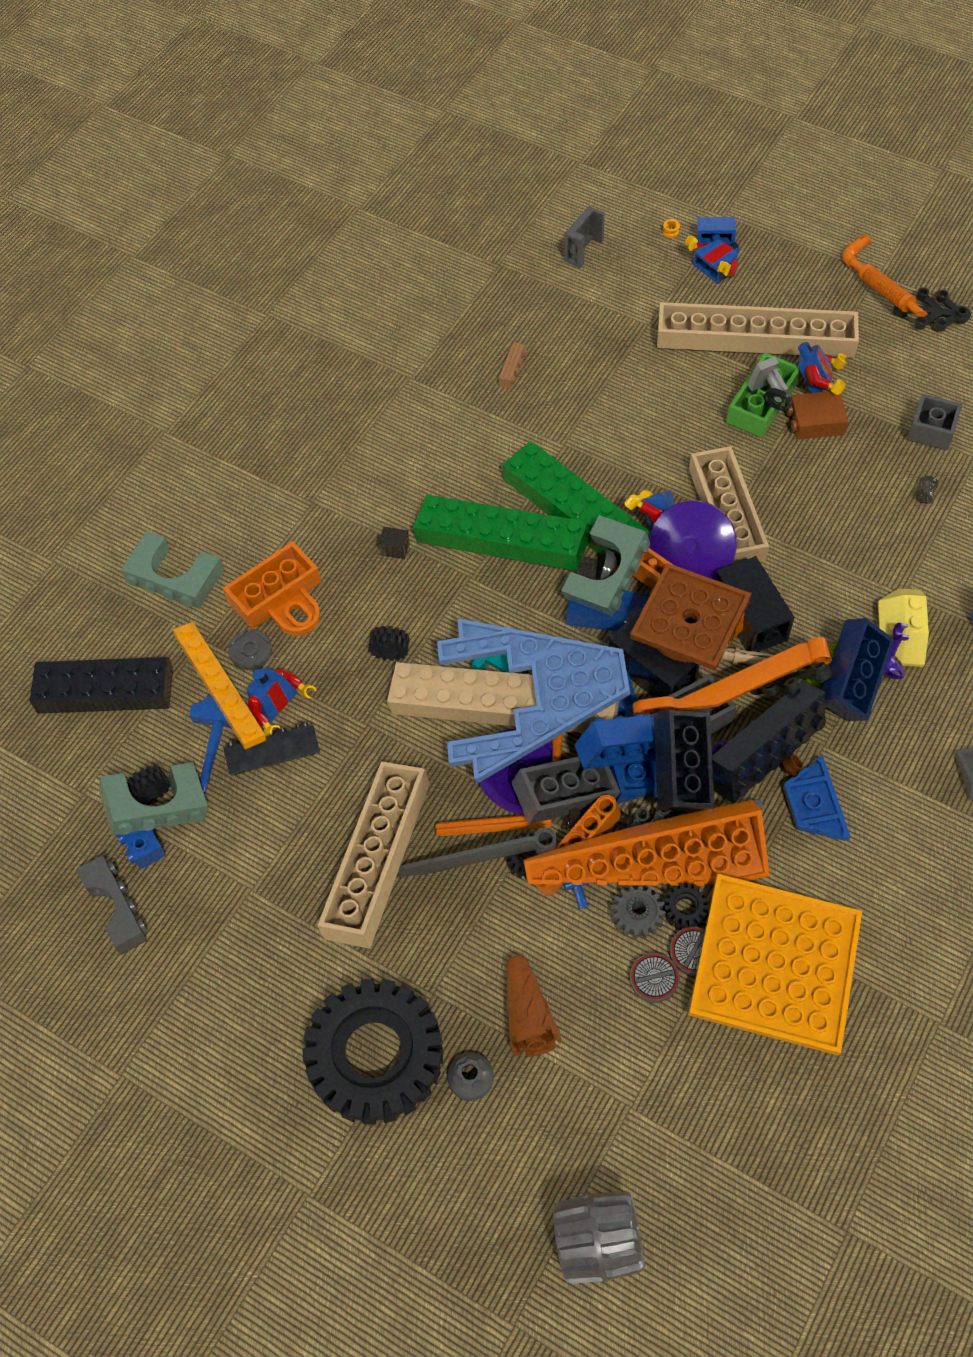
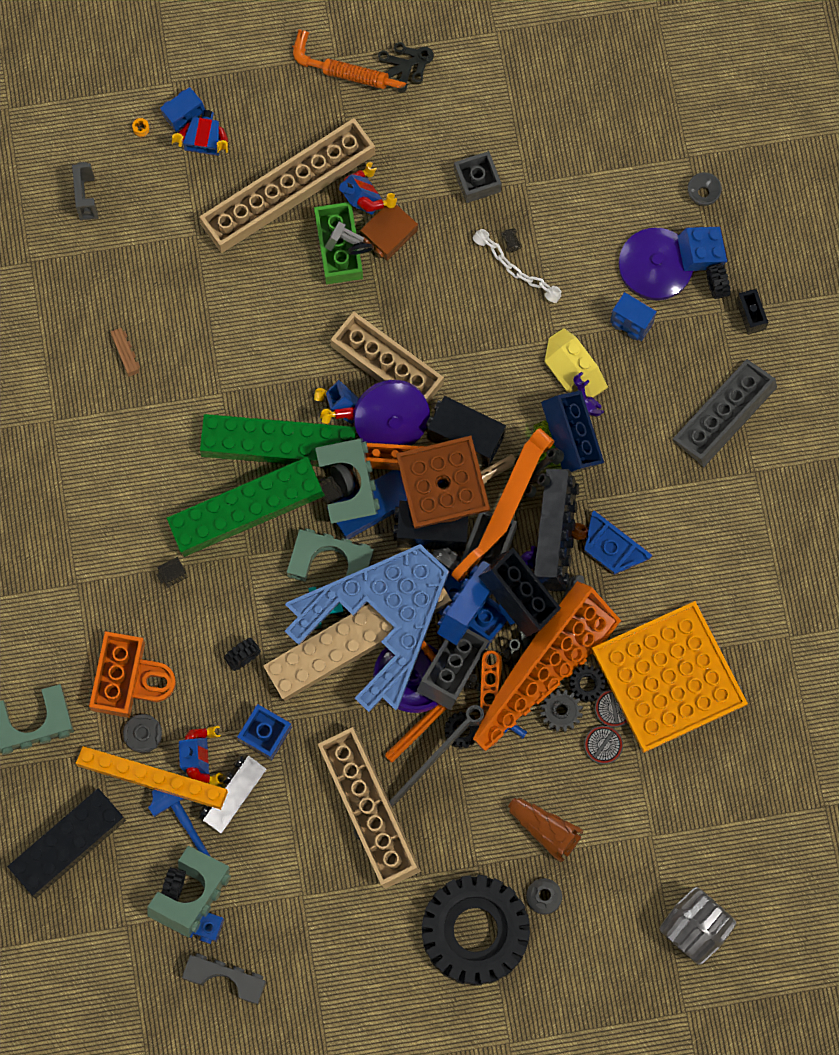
camera: 45 degrees left, 15 degrees up
(347, 720) = (264, 732): none -> blue brick
(527, 603) = (309, 545): none -> sand green arch
(641, 689) = (447, 557): none -> dark grey piece
(932, 553) = (552, 293): none -> white piece

